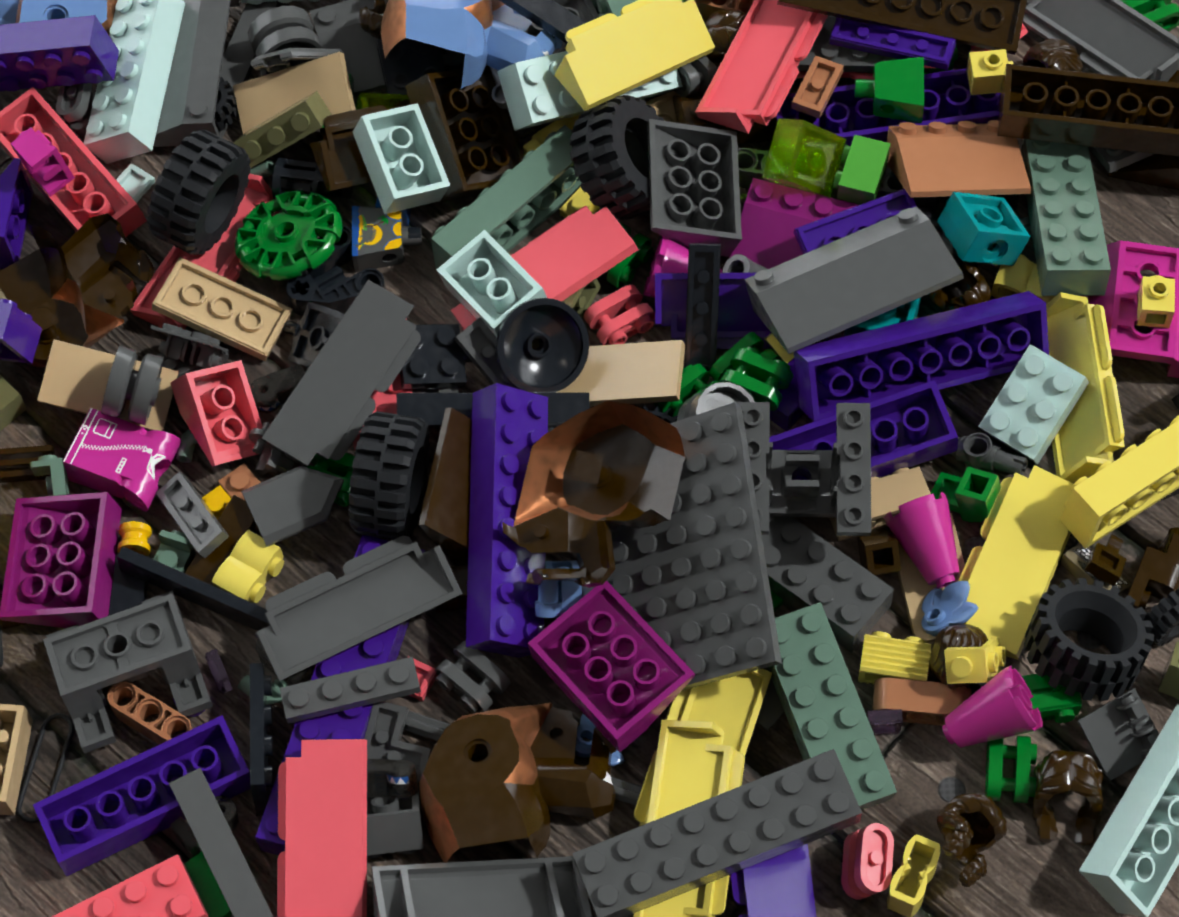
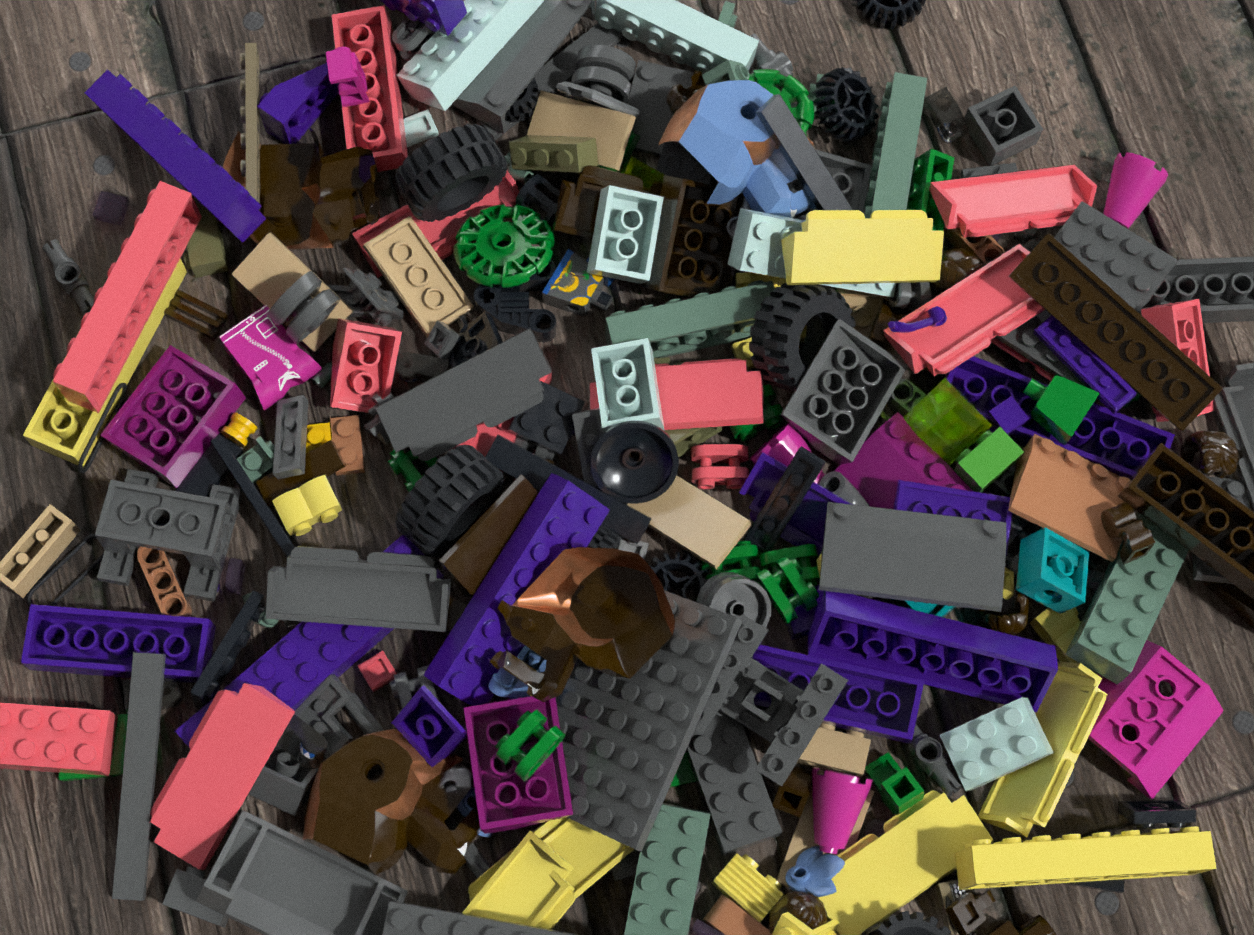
camera: 25 degrees right, 10 degrees up
(58, 481) = (209, 349): sand green bracket -> none
(282, 350) = (441, 340): none -> dark grey tile
(292, 502) = (368, 473): dark grey tile -> none
(350, 690) = (313, 658): dark grey plate -> none
(506, 678) = (429, 727): none -> dark purple slope
(603, 616) = (511, 746): none -> green brick
(736, 75) = (936, 318): none -> dark purple piece
(817, 87) = (998, 365): nougat plate -> none
(854, 122) = (1008, 415): none -> dark purple tile
(986, 71) = (1147, 433): light yellow brick -> none
(1017, 151) = (1122, 523): none -> dark brown leg
(1156, 301) = (1152, 720): light yellow brick -> none

